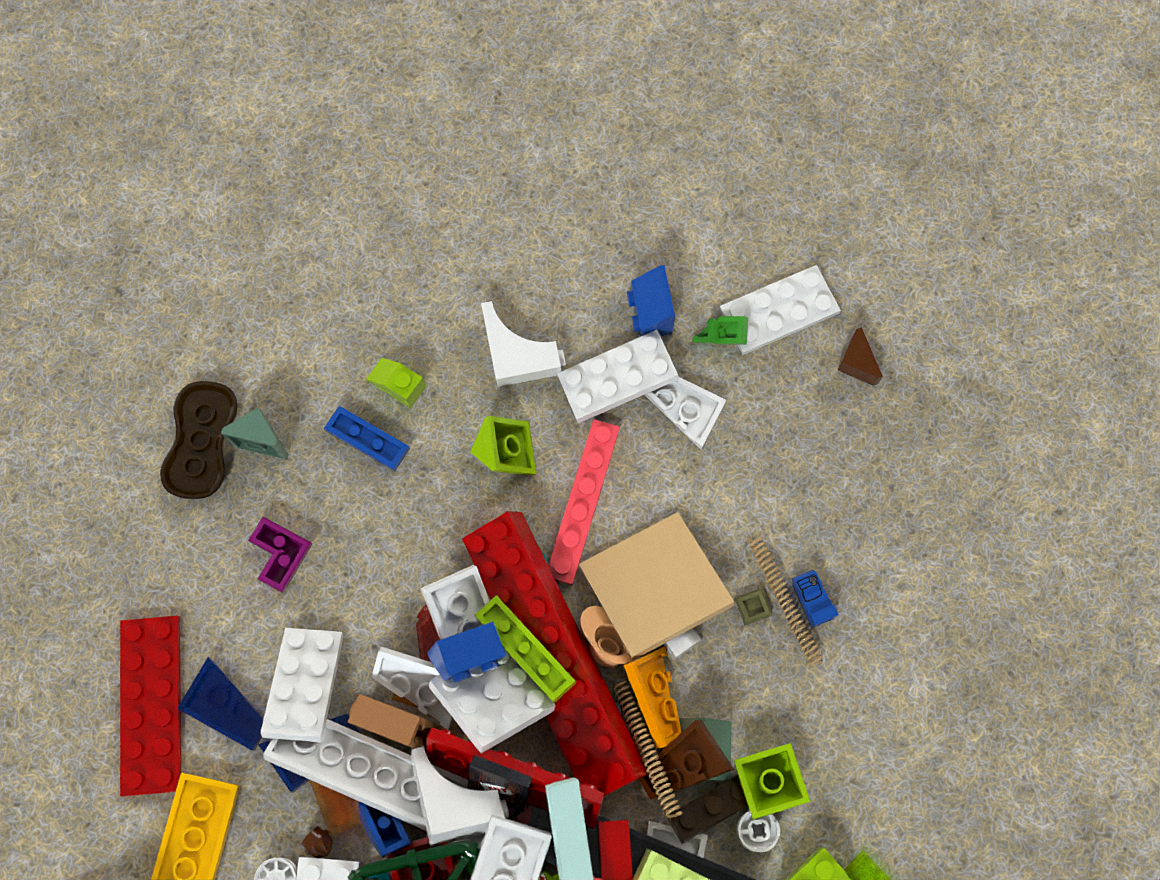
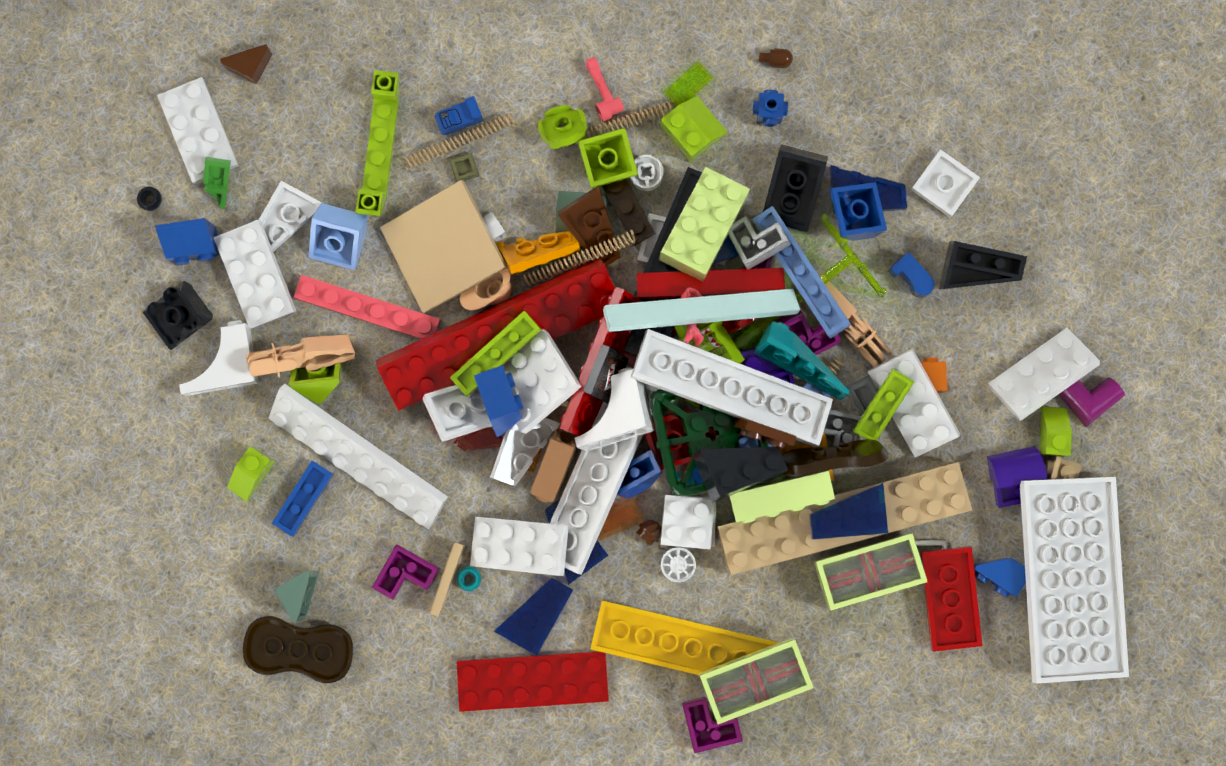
camera: 90 degrees left, 10 degrees up
(262, 627) = (461, 581): none -> teal plate
(270, 601) = (447, 579): none -> tan tile
(409, 496) = (357, 457): none -> white plate
(527, 440) = (310, 353): none -> light nougat arm
(572, 298) = (178, 314): none -> black slope
(665, 464) = (337, 236): none -> light blue slope
(700, 255) = (141, 198): none -> black plate
(774, 509) = (380, 144): none -> lime slope
(795, 718) = (558, 136): none -> lime plate
(819, 787) = (613, 122): none -> tan piece
(839, 781) = (609, 106): none -> coral brick

